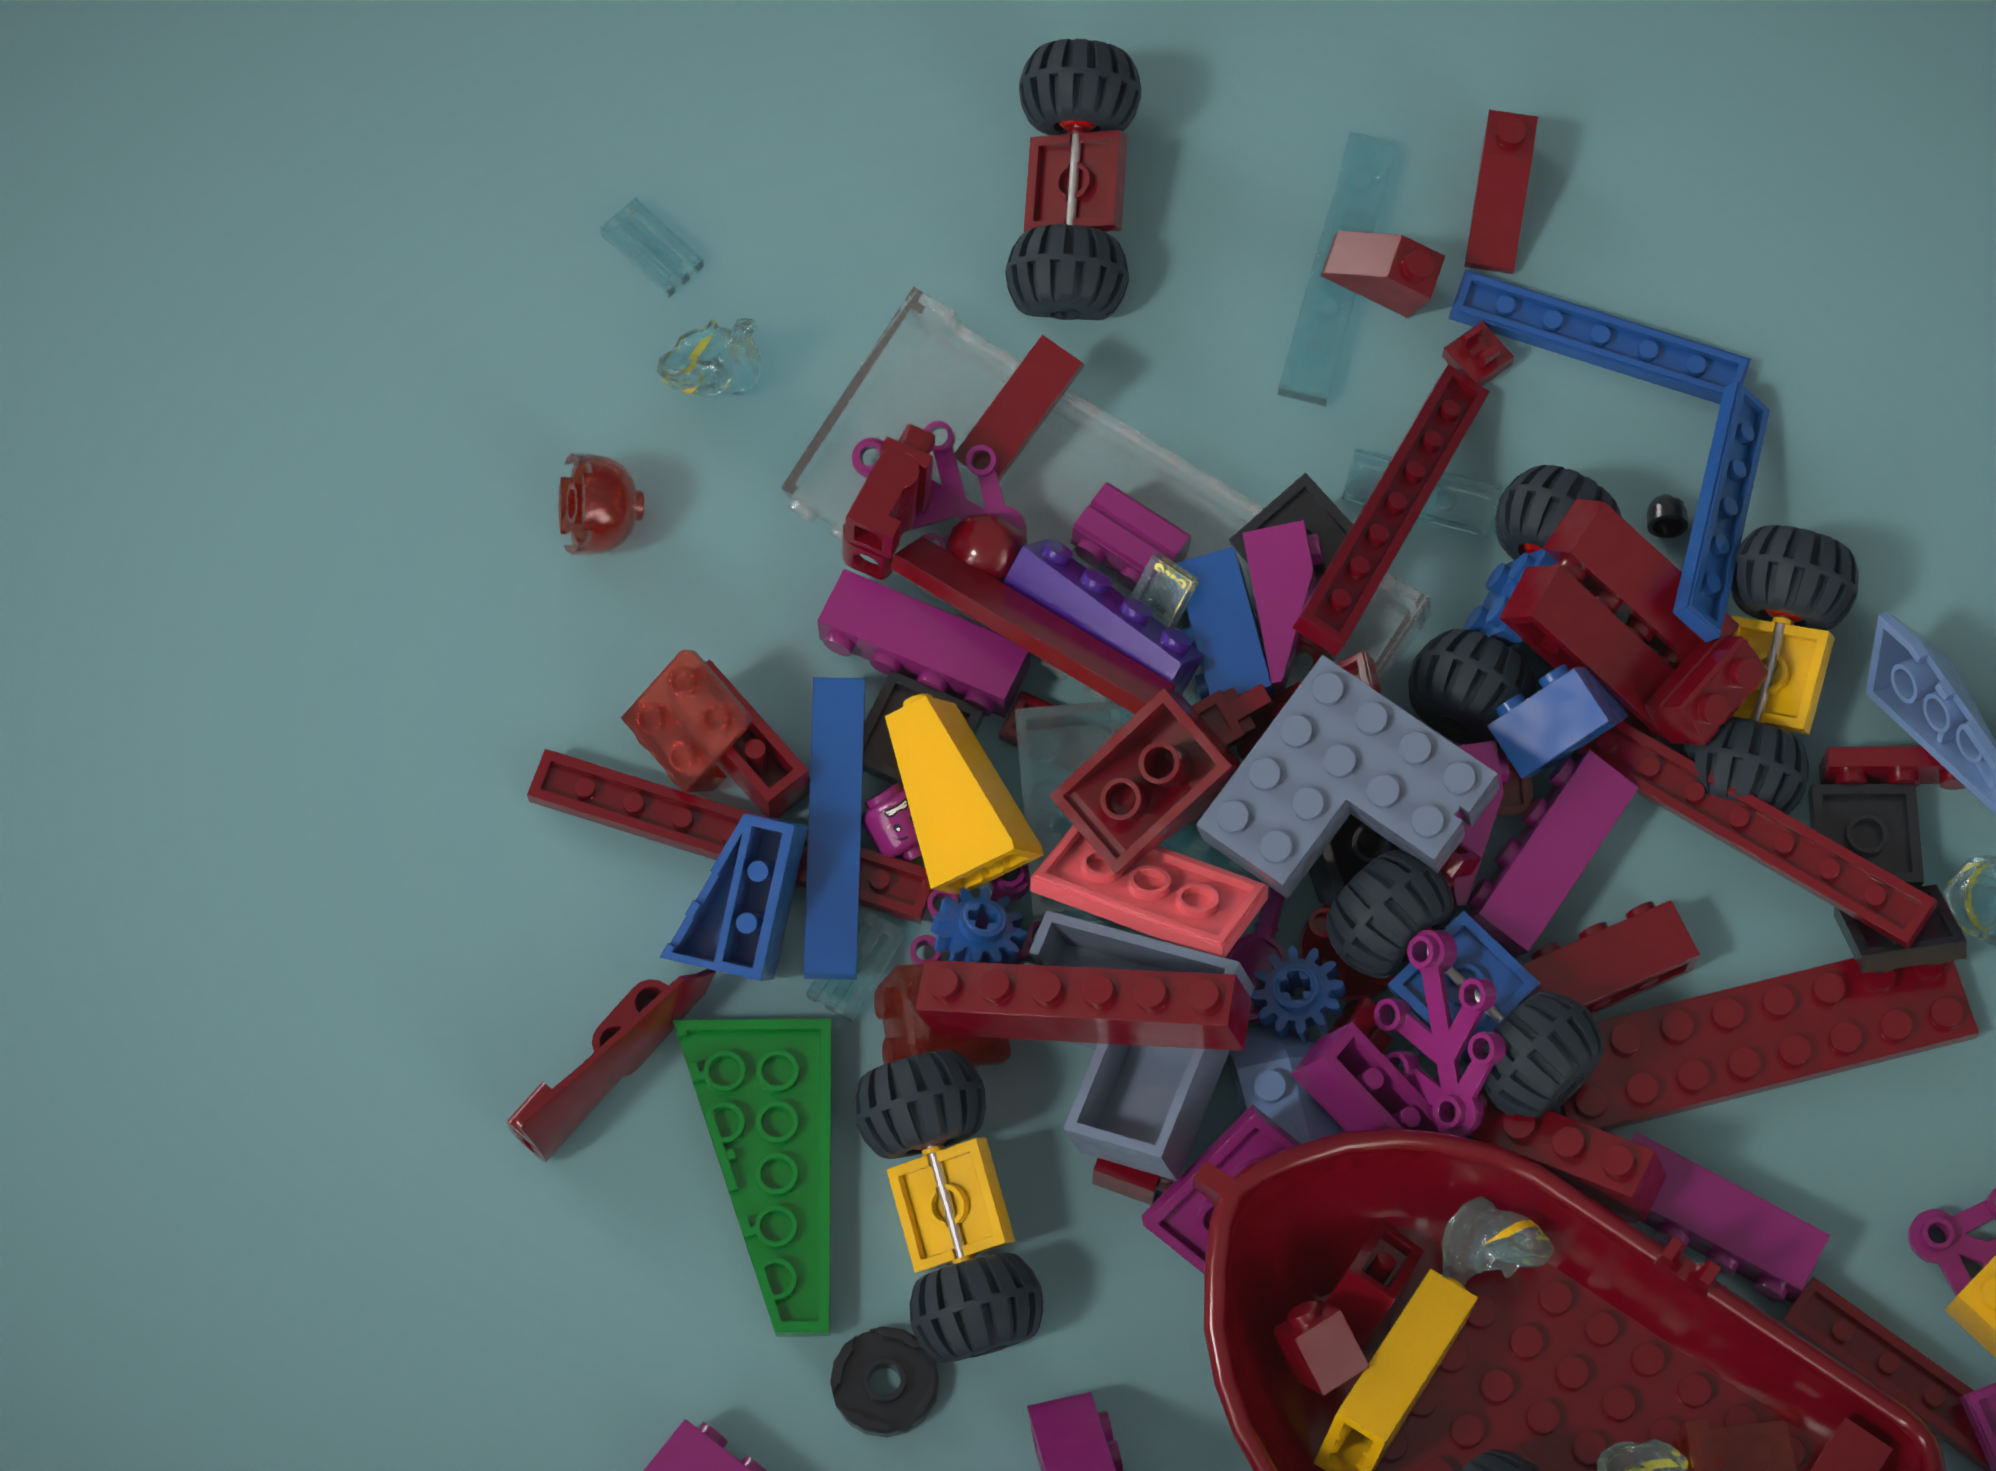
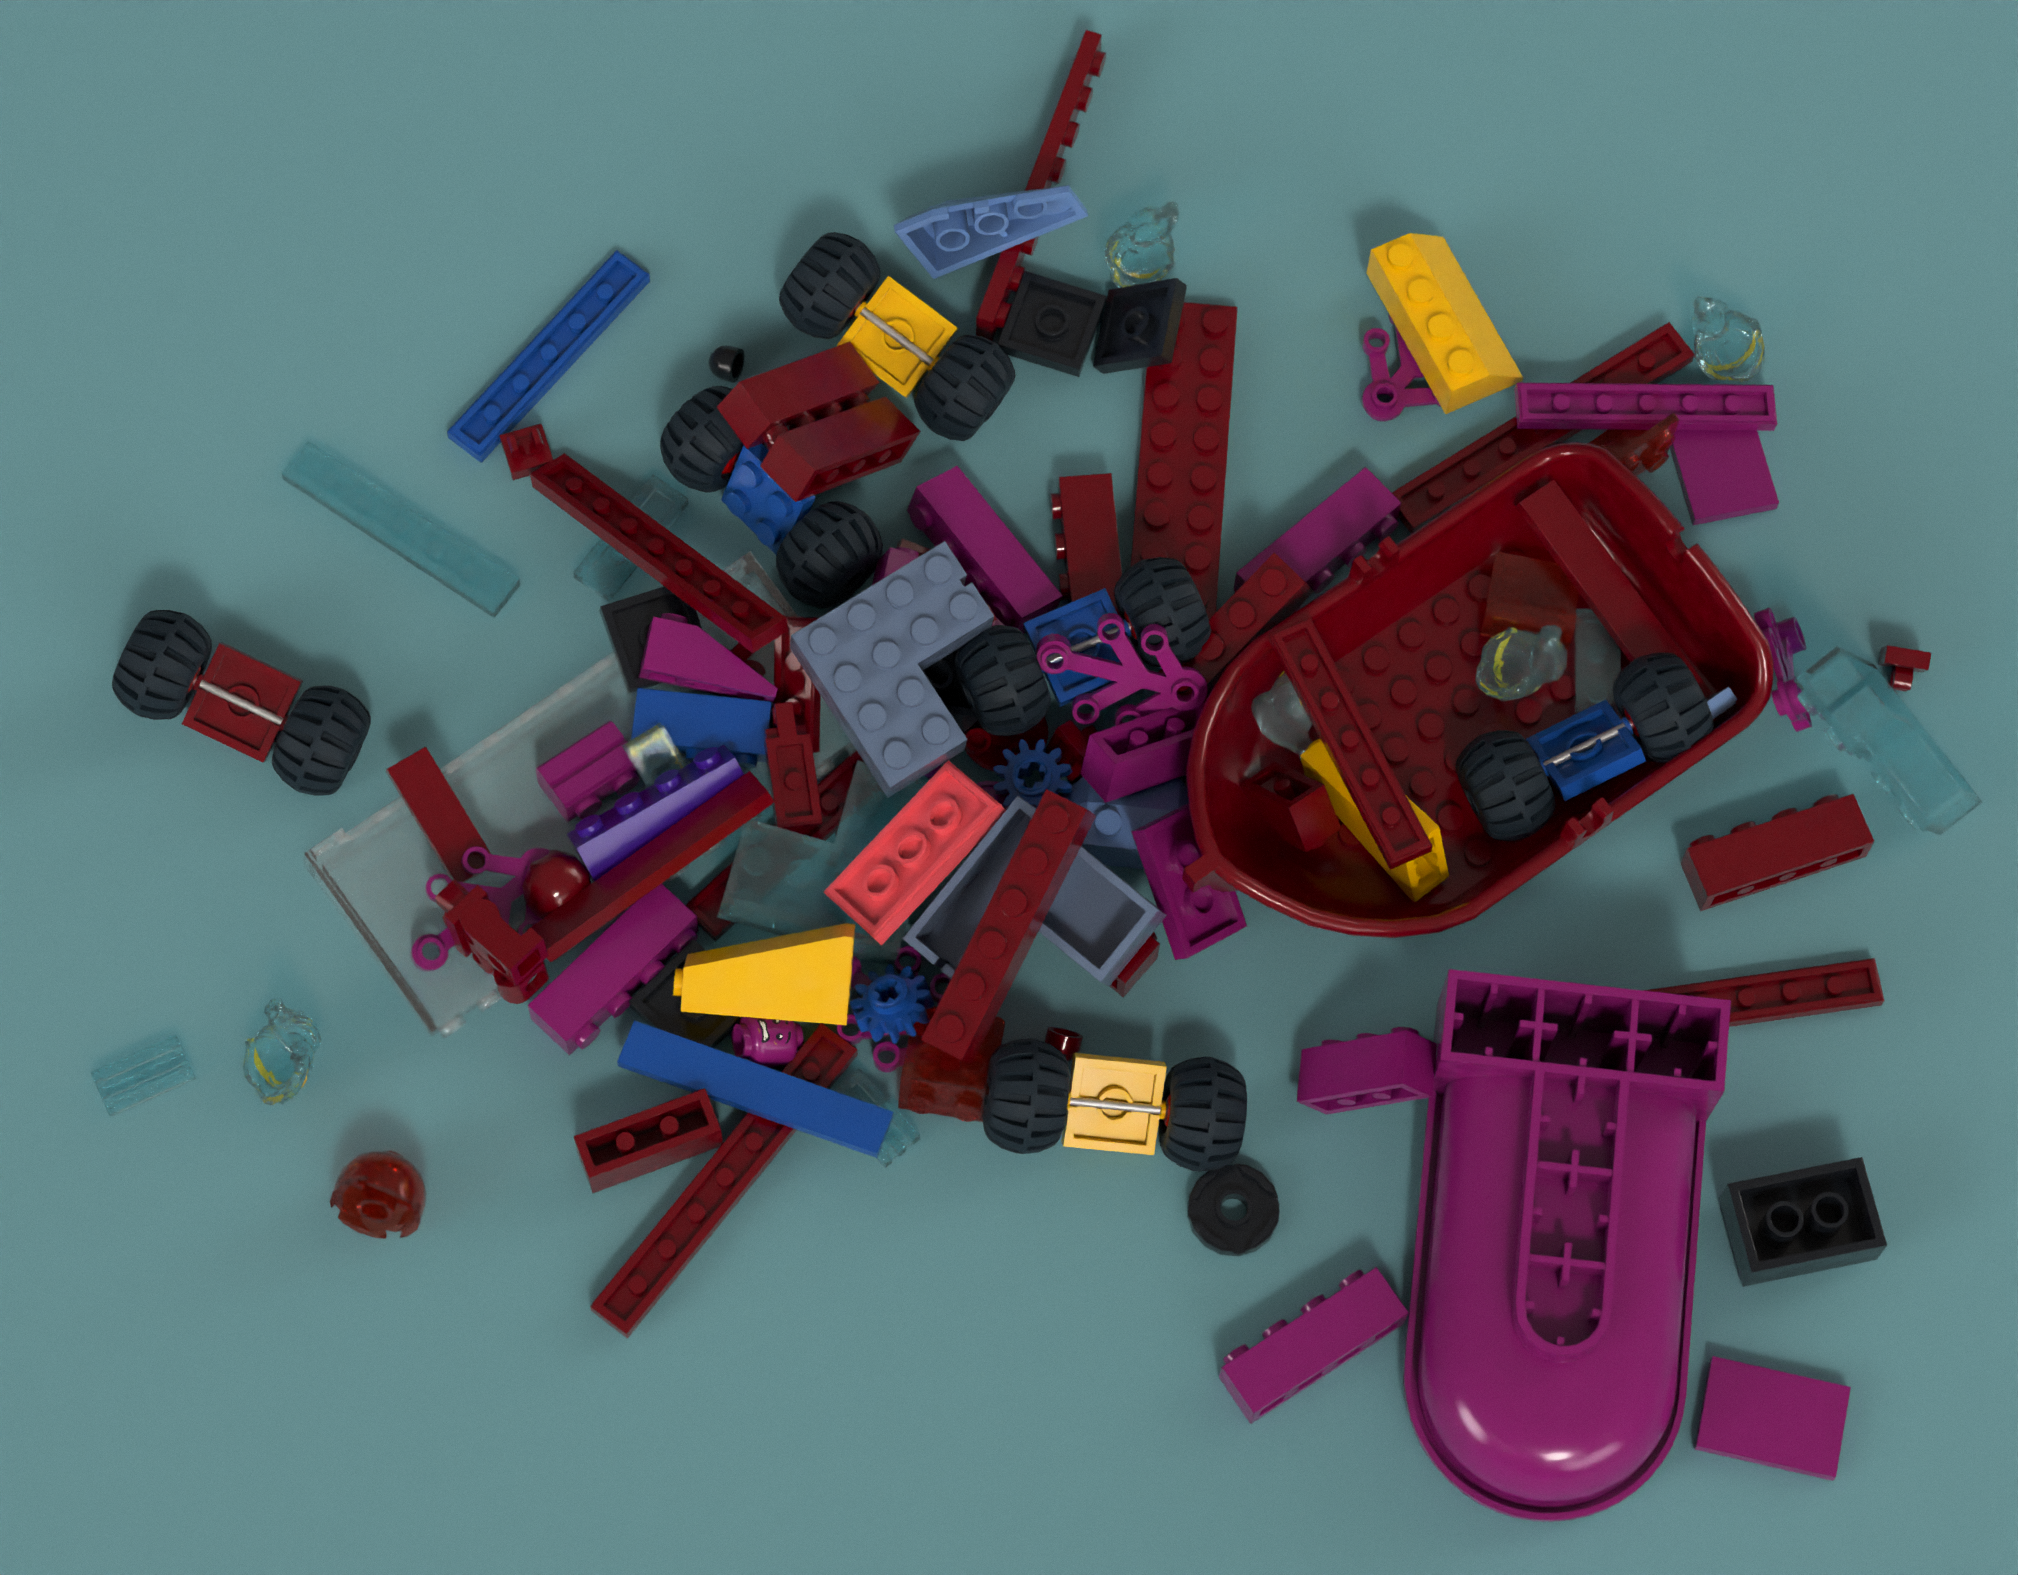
camera: 75 degrees left, 0 degrees up
(619, 1049) = (922, 1397): dark red panel -> none
(688, 722) = (622, 1171): clear red bracket -> none
(745, 902) = (798, 1180): blue wedge -> none
(770, 1126) = (991, 1228): green wing -> none
(1010, 1132) = (1064, 1040): none -> dark red hinge
(1146, 781) = (831, 817): dark red slope -> none
(1318, 1347) = (1342, 855): dark red slope -> none
(1384, 269) = (427, 489): dark red slope -> none
(1447, 1308) = (1350, 743): none -> dark red tile
(1501, 191) = (388, 377): dark red slope -> none
(1555, 720) = (893, 497): blue slope -> none
(1706, 690) = (901, 382): dark red brick -> none
(1721, 512) = (752, 314): blue tile -> none
(1768, 836) = (1019, 399): dark red plate -> none

